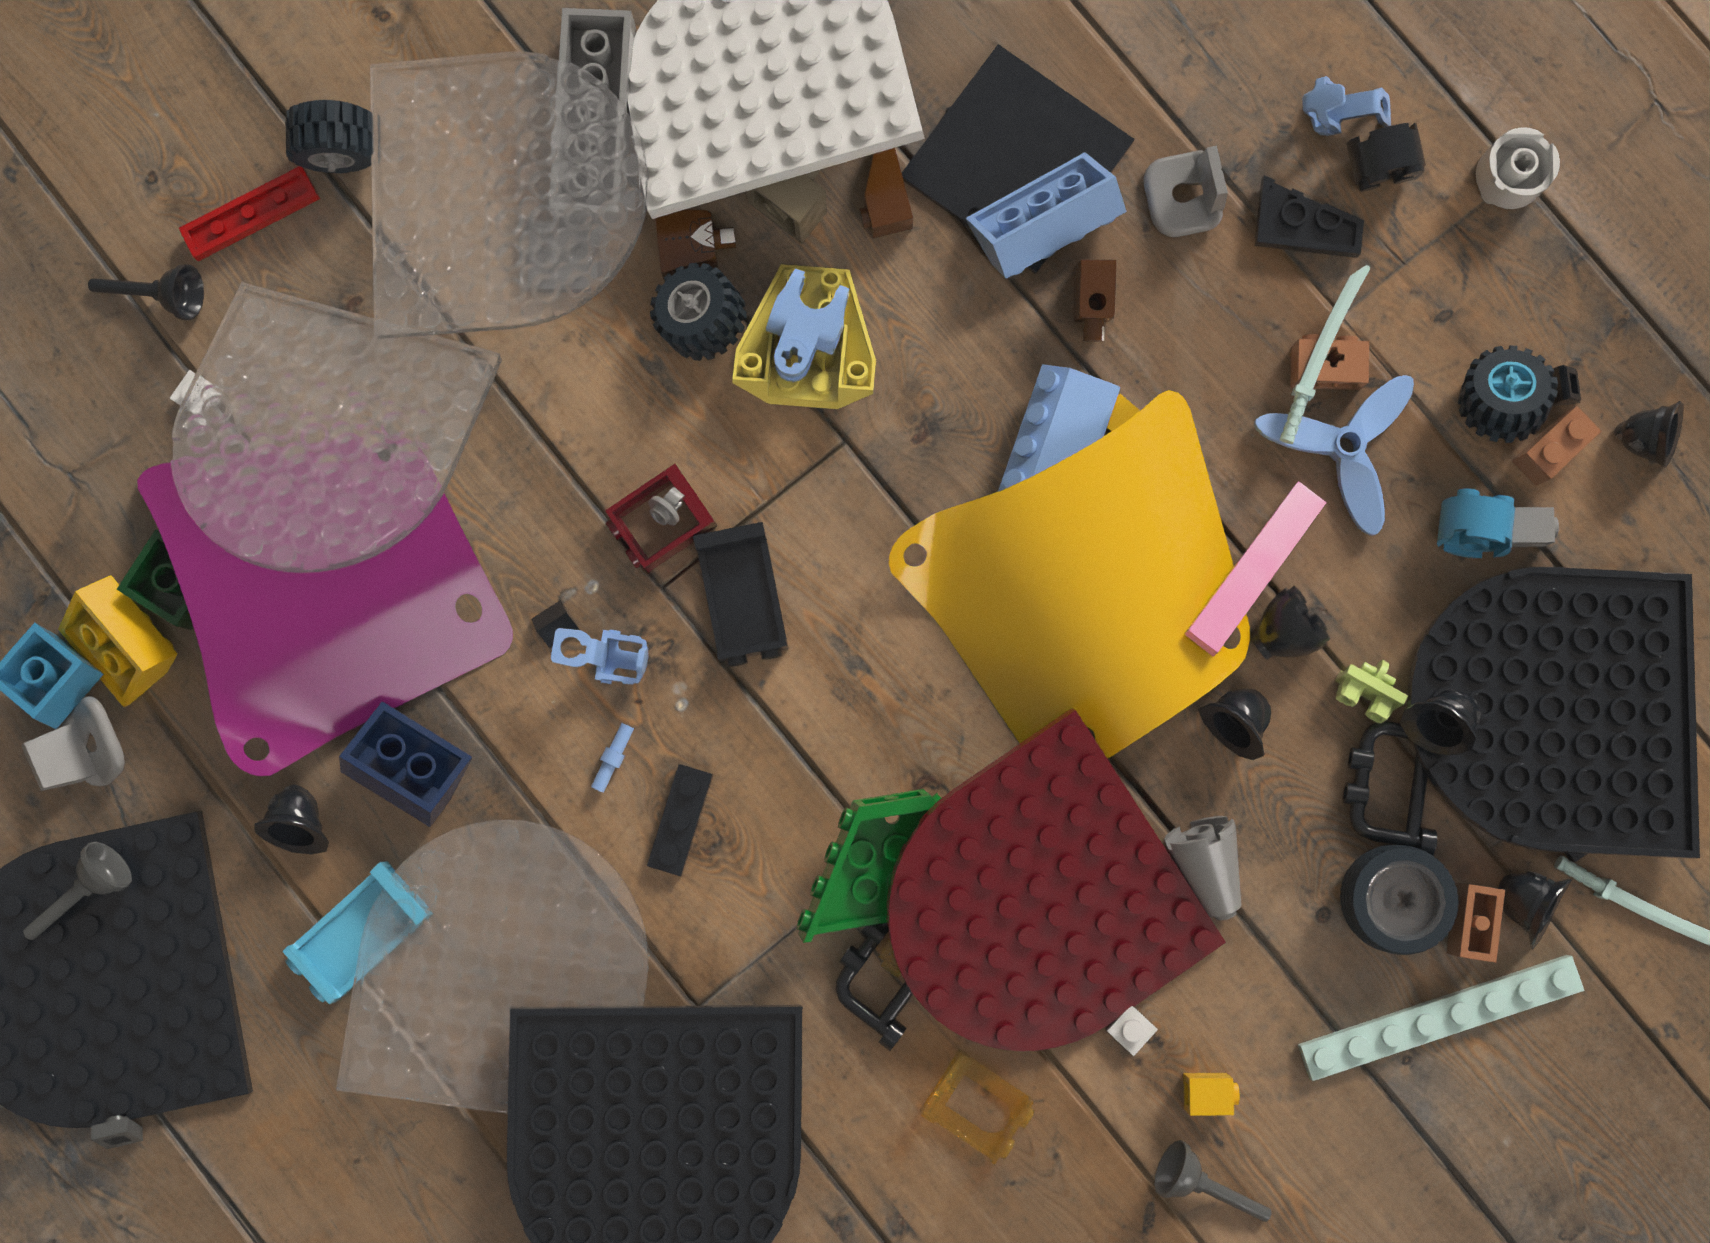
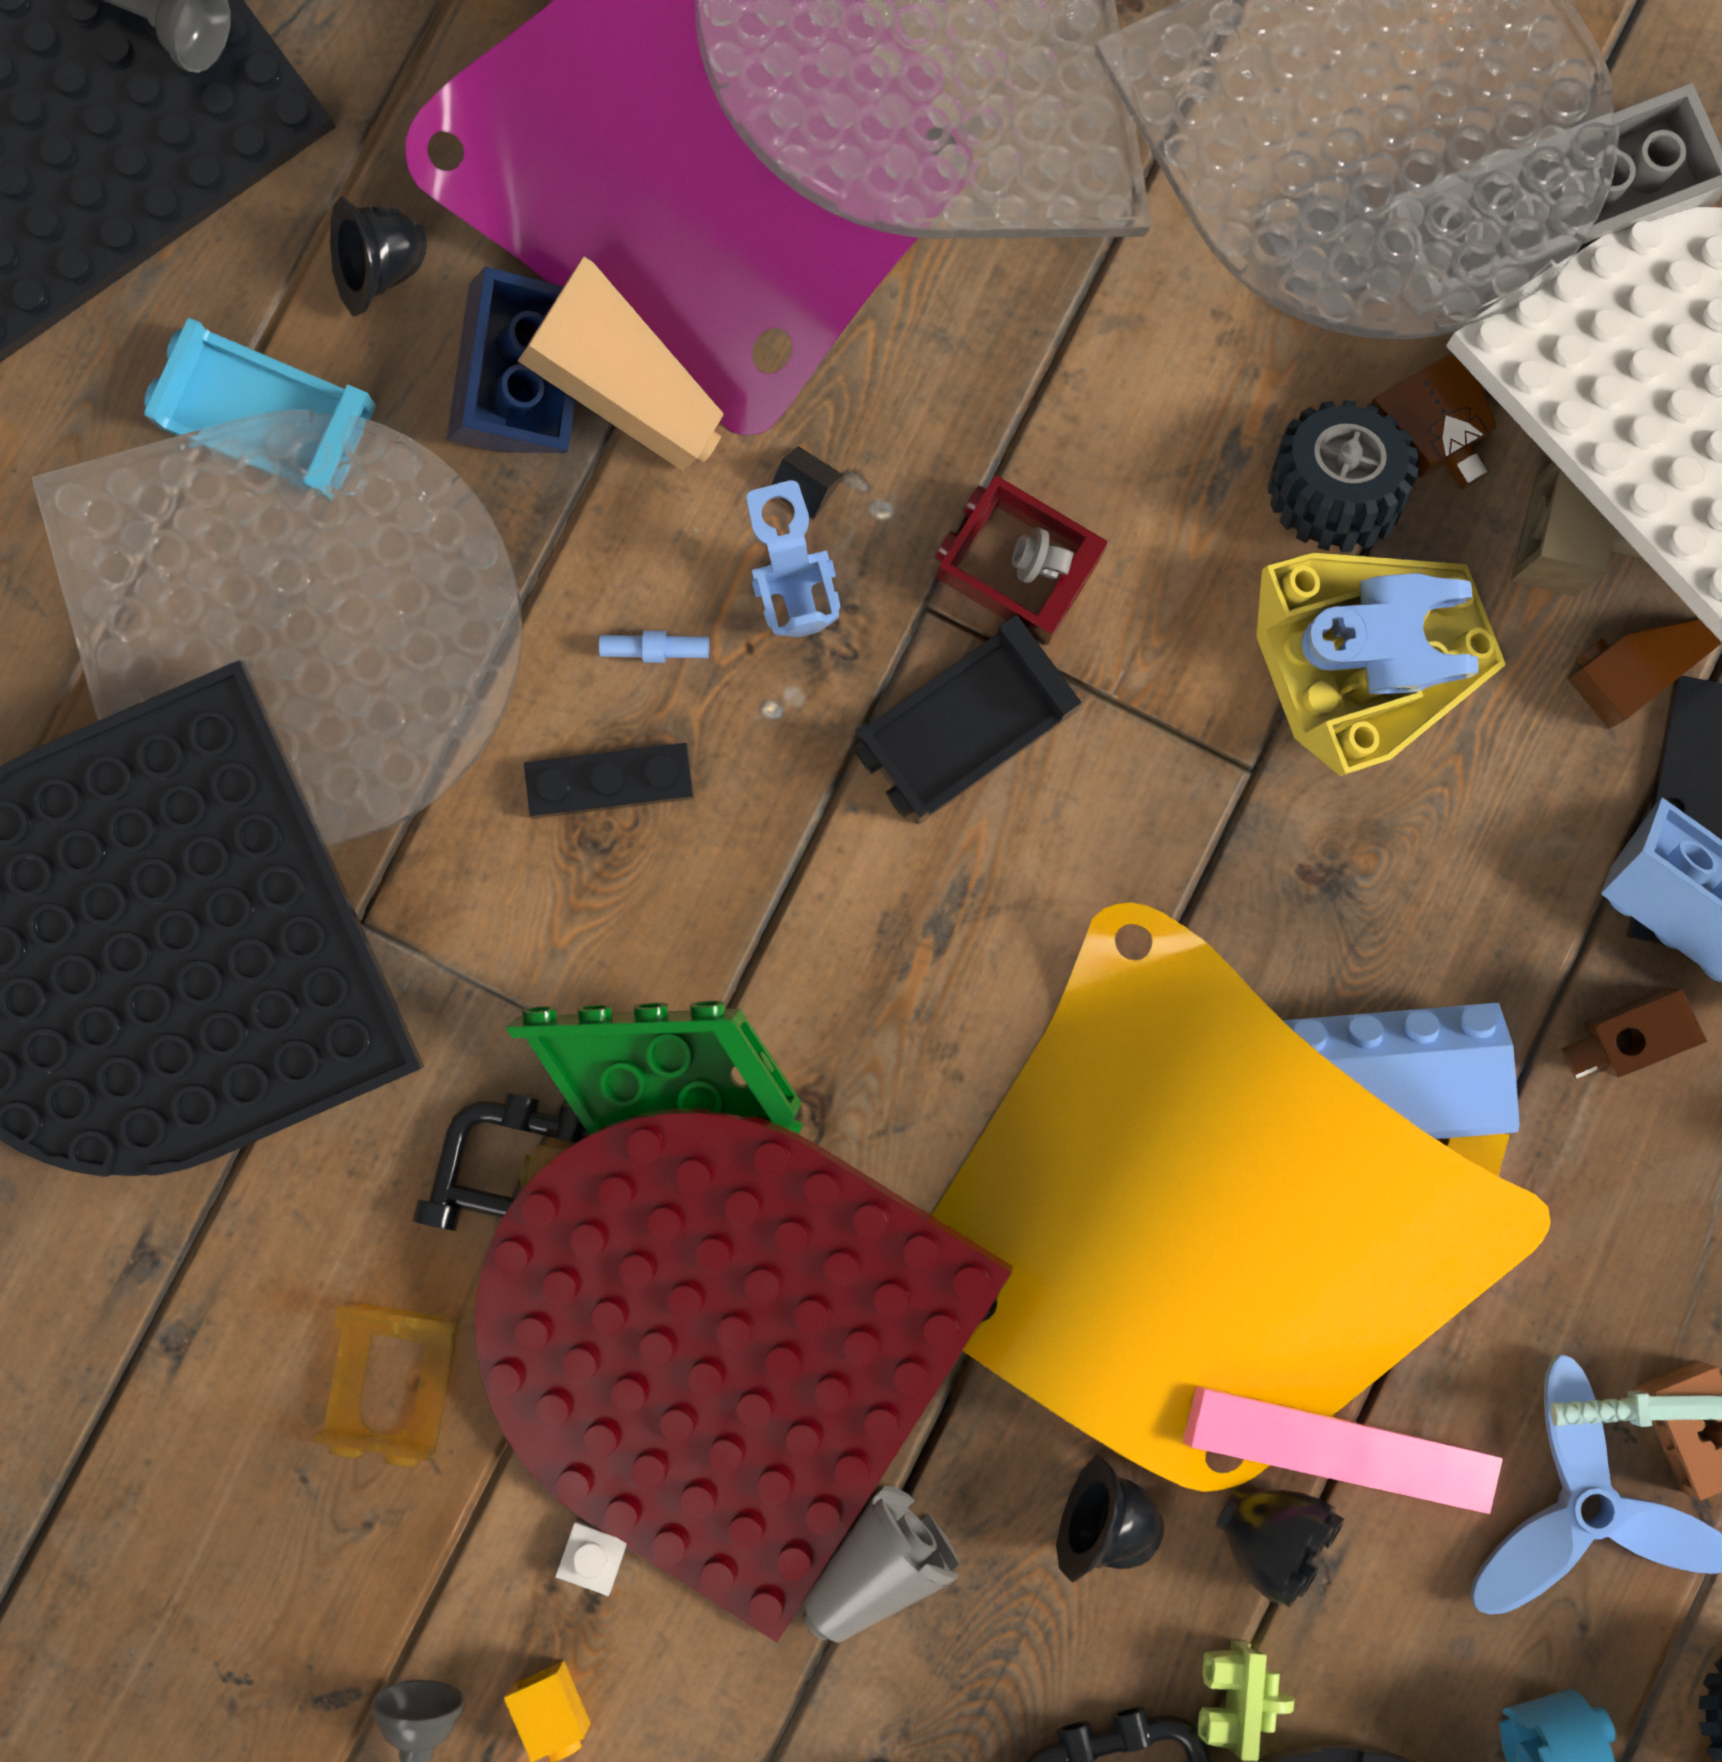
camera: 65 degrees right, 0 degrees up
(435, 704) = (621, 370): none -> tan slope

